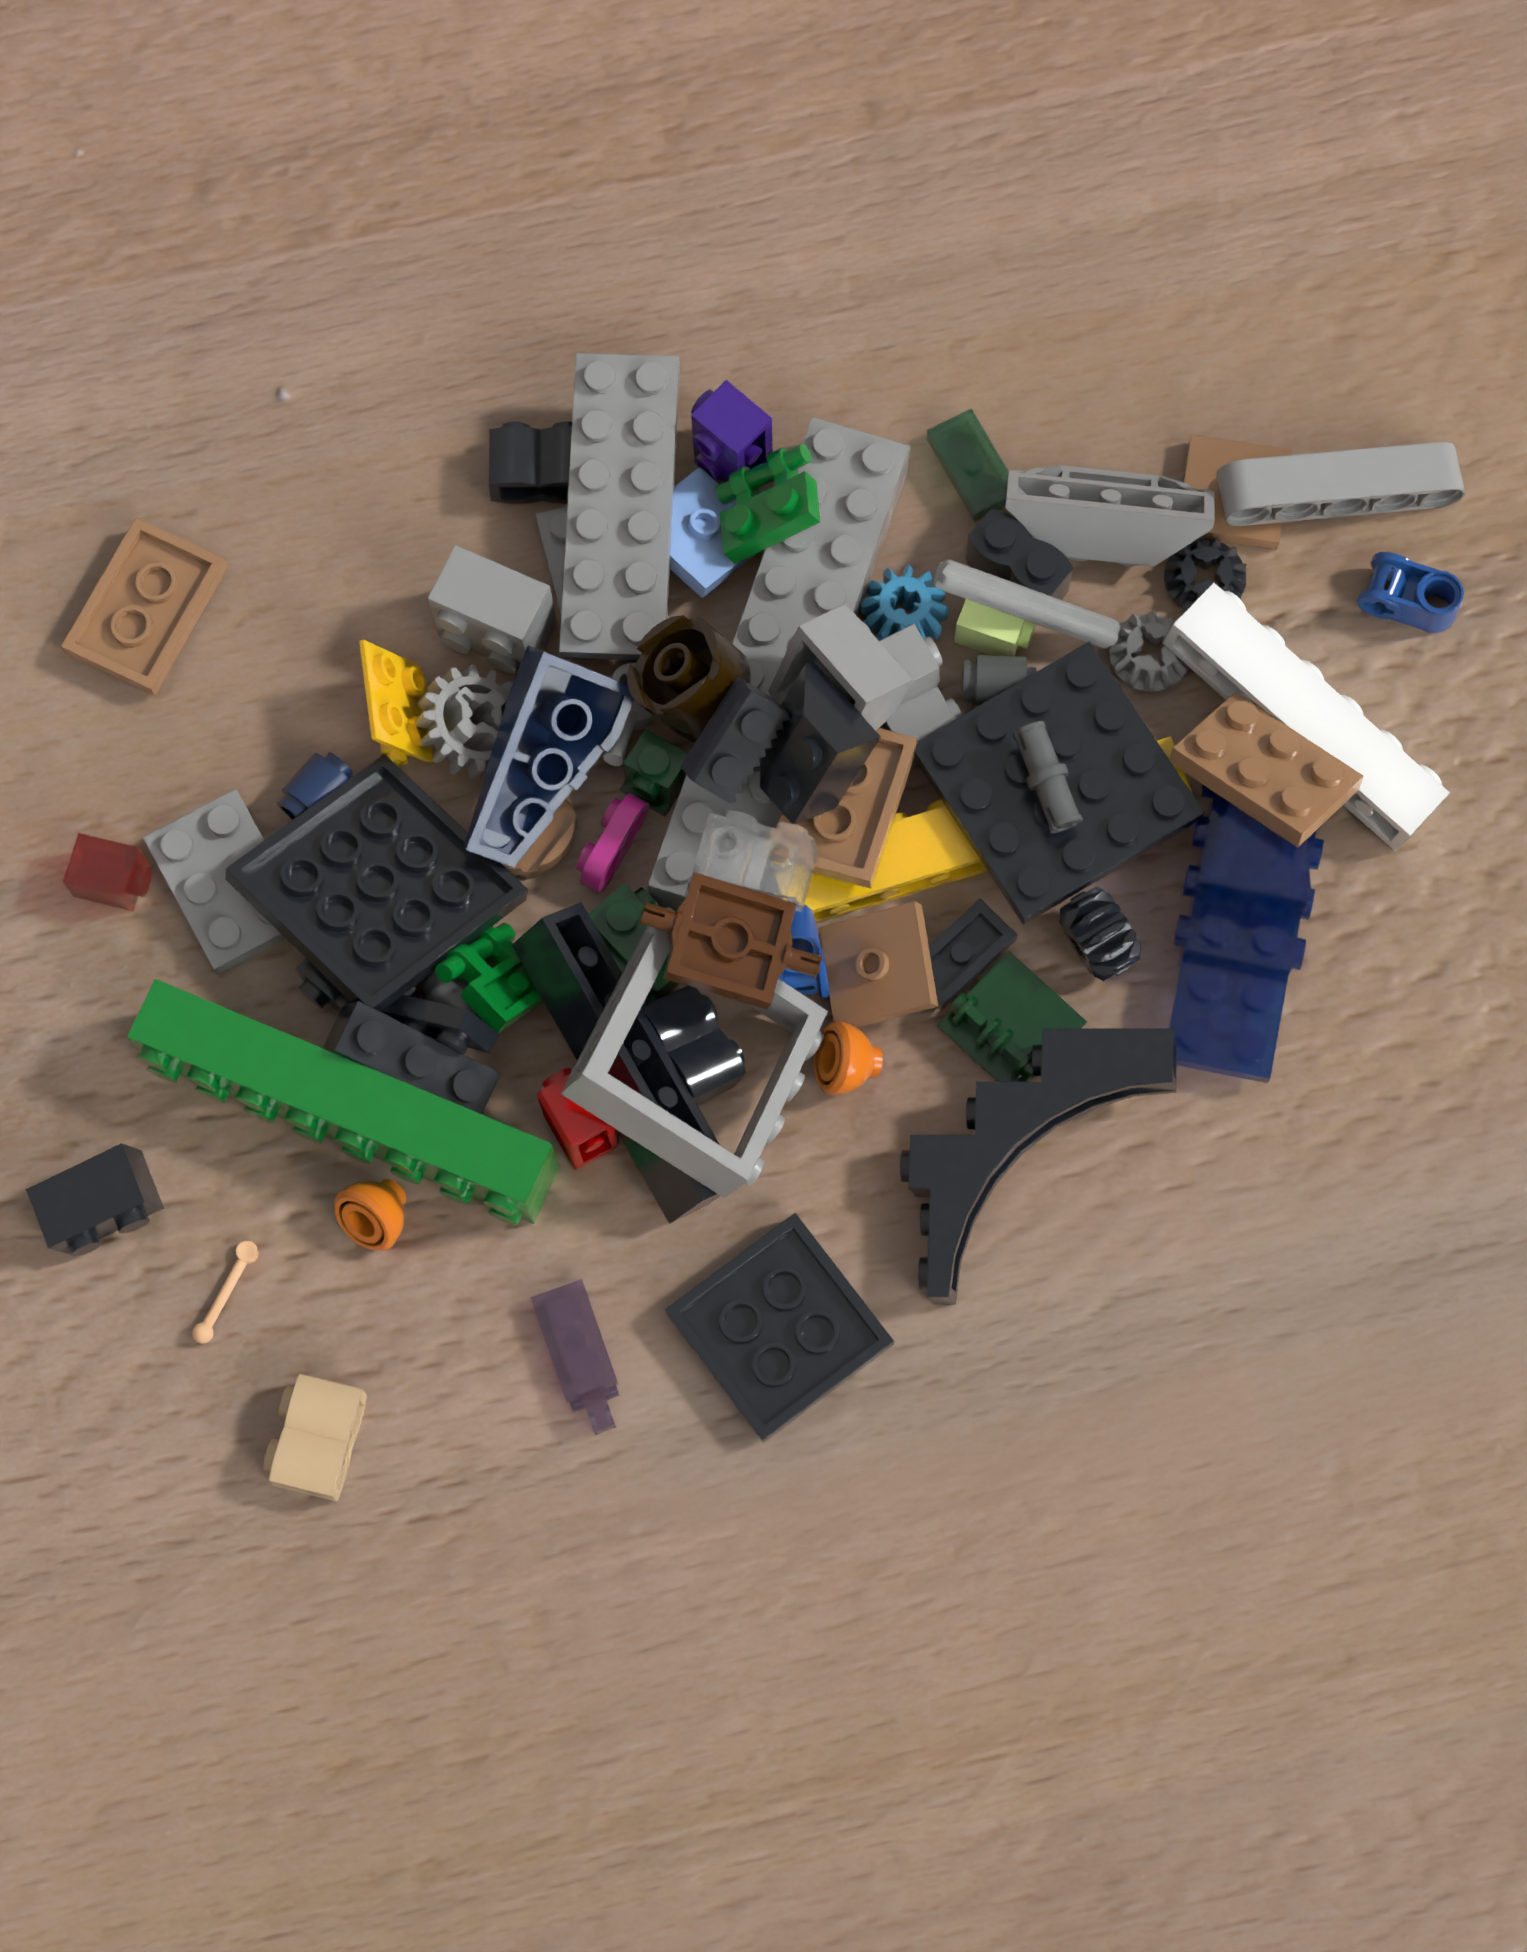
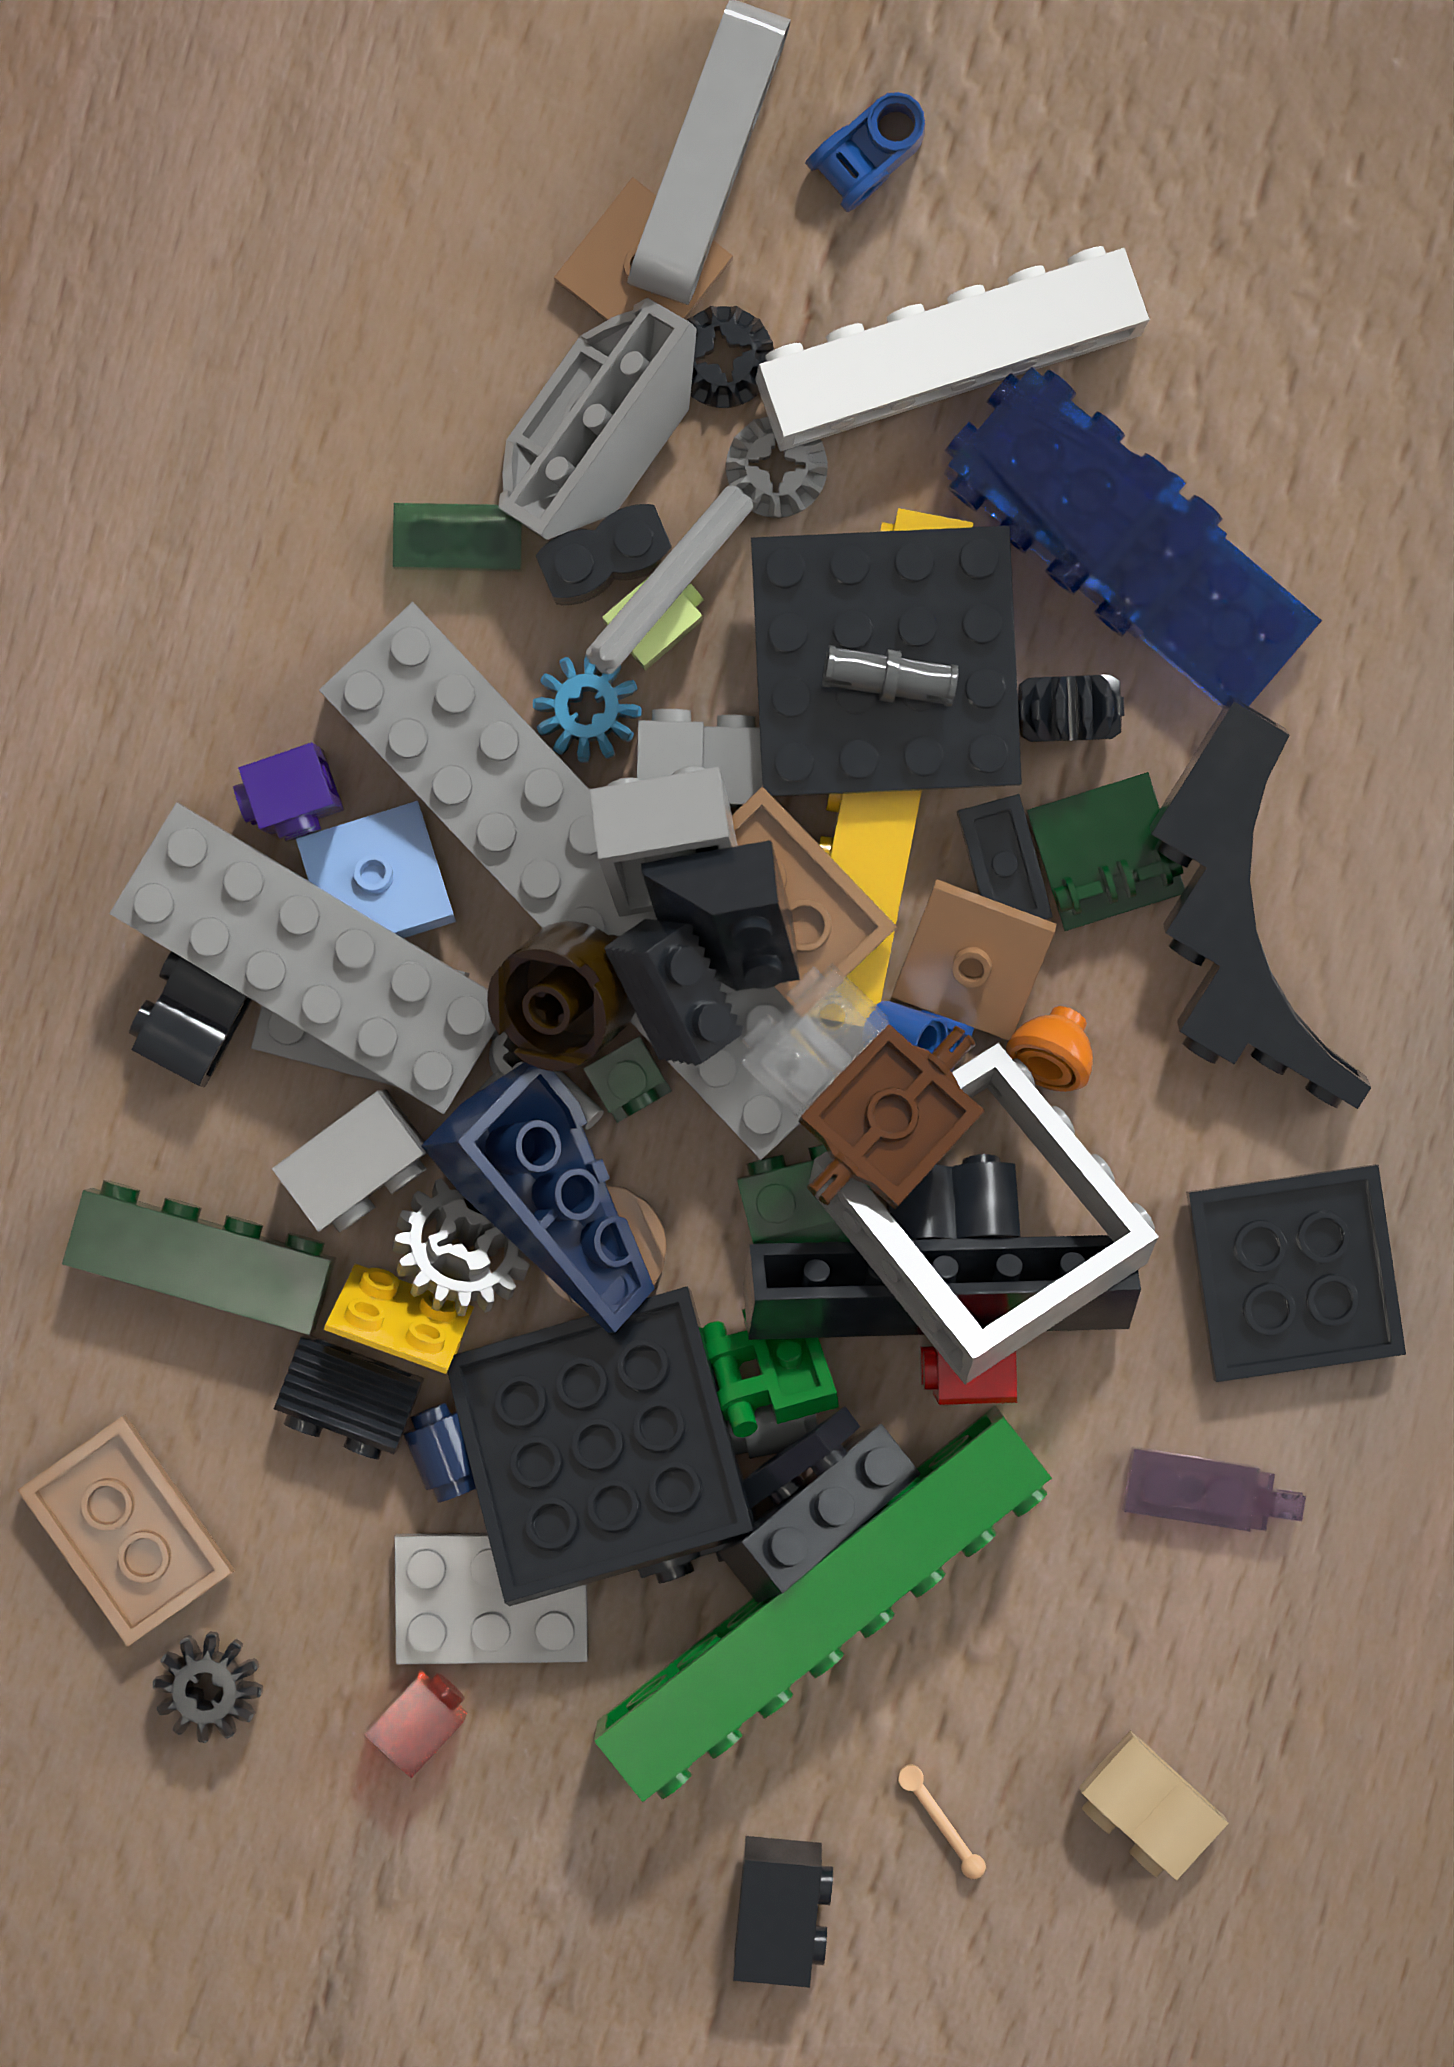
camera: 60 degrees left, 15 degrees up
(41, 725) = (190, 1699): none -> black gear
(321, 702) = (347, 1396): none -> black brick
(365, 551) = (200, 1259): none -> brick
(371, 1213) = (947, 1629): orange brick -> none
(621, 824) = (662, 1143): dark pink plate -> none
(774, 514) = (416, 799): green plate -> none
(991, 676) = (722, 654): dark grey brick -> none
(1266, 769) = (1000, 433): medium nougat plate -> none

